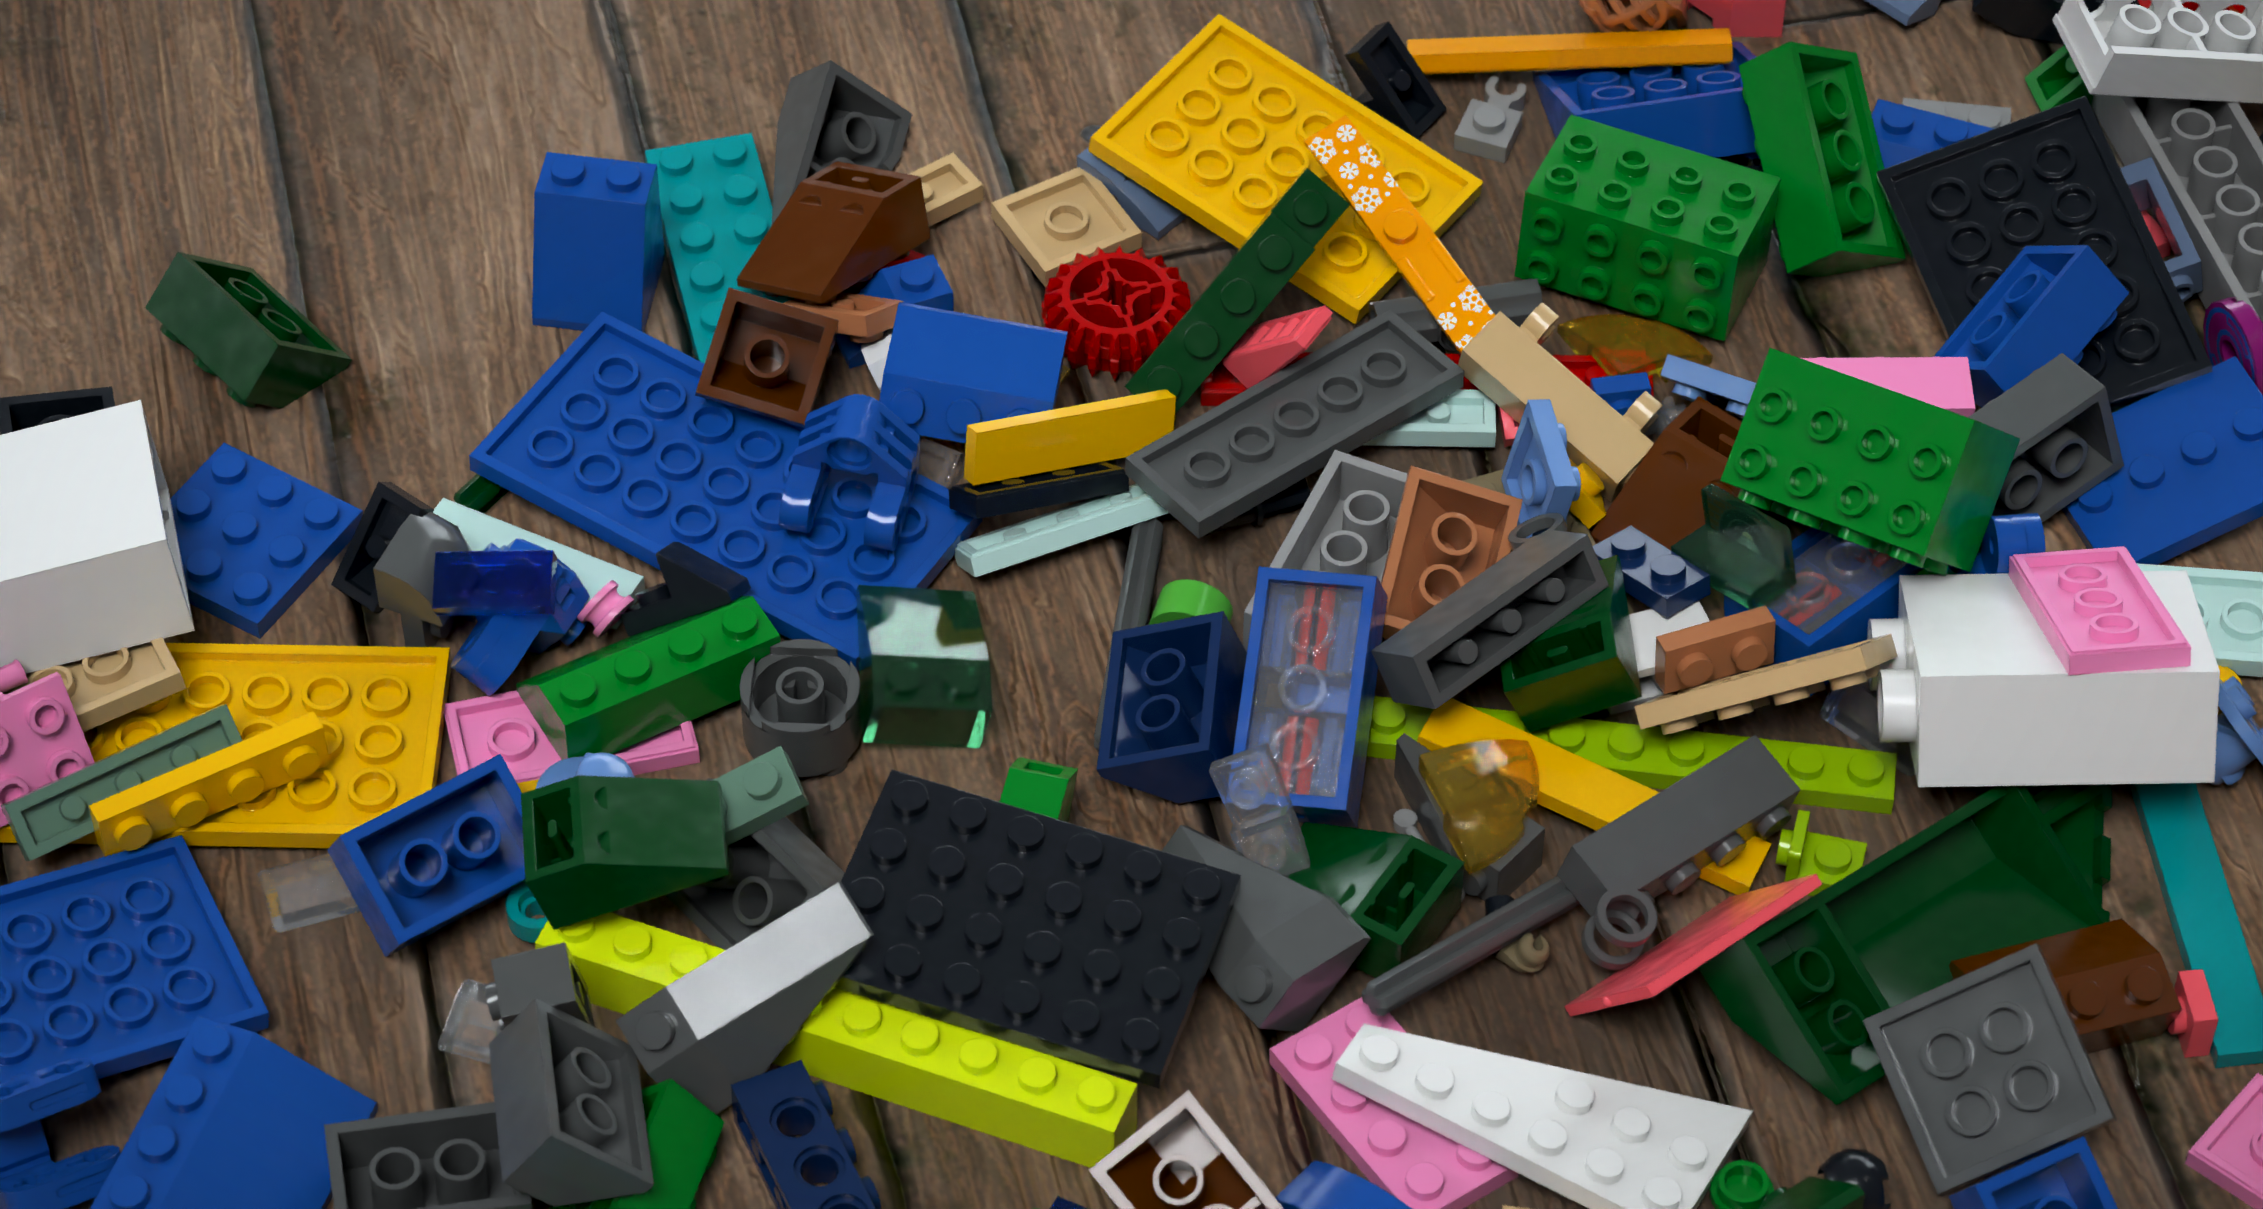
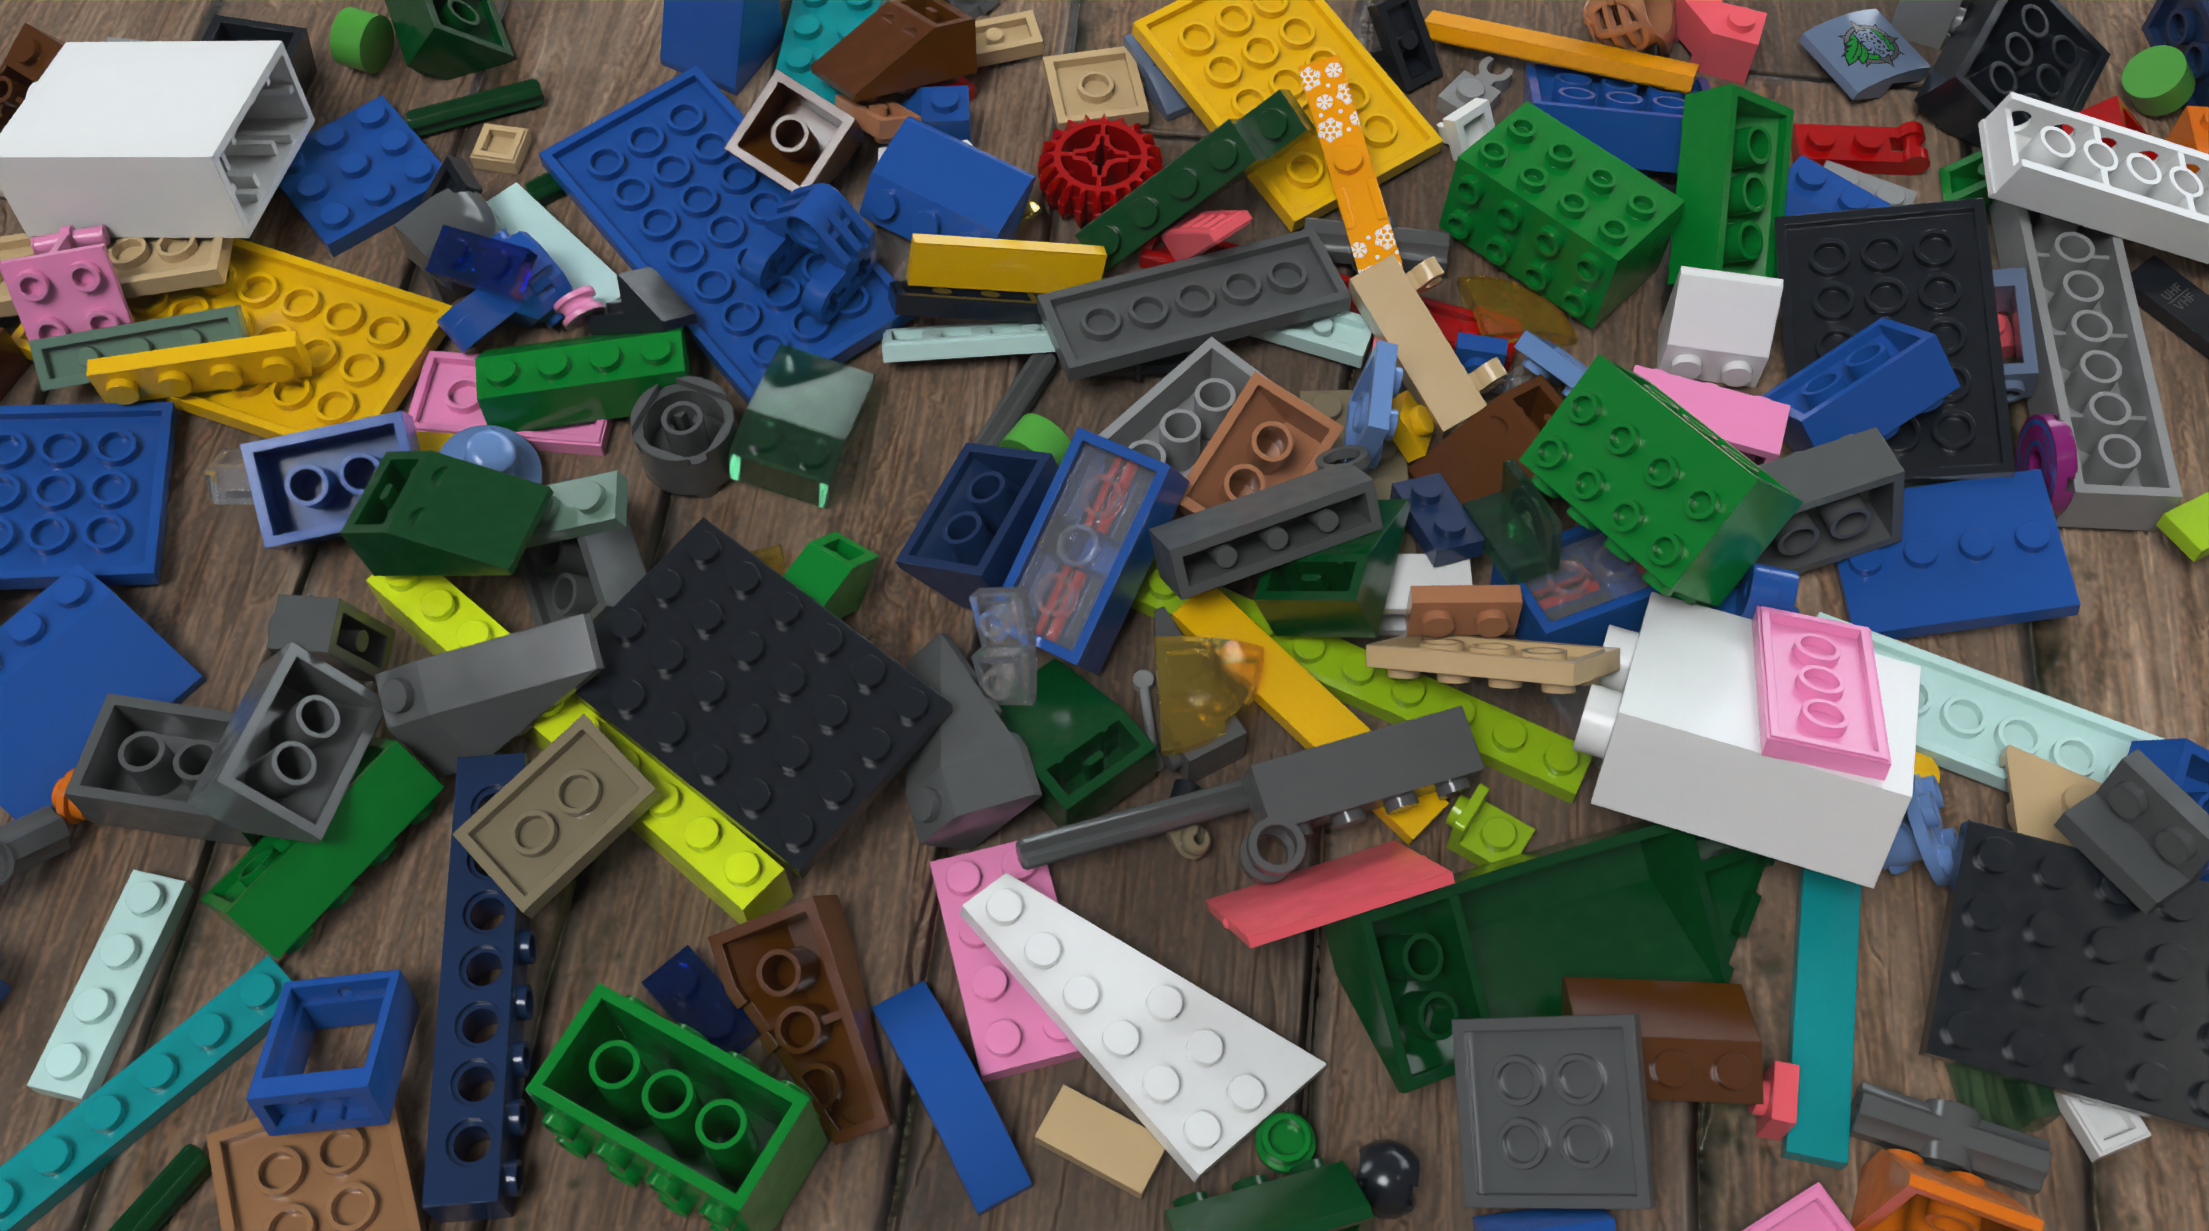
camera: 20 degrees right, 10 degrees up
(169, 385) = (361, 40): none -> bright green piece
(344, 427) = (475, 107): none -> dark green axle
(398, 462) = (501, 148): none -> tan tile
(883, 1096) = (557, 816): none -> dark tan plate
(1506, 163) = (1466, 126): none -> white tile
(1859, 298) = (1719, 326): none -> white slope
(1939, 73) = (1864, 147): none -> red plate

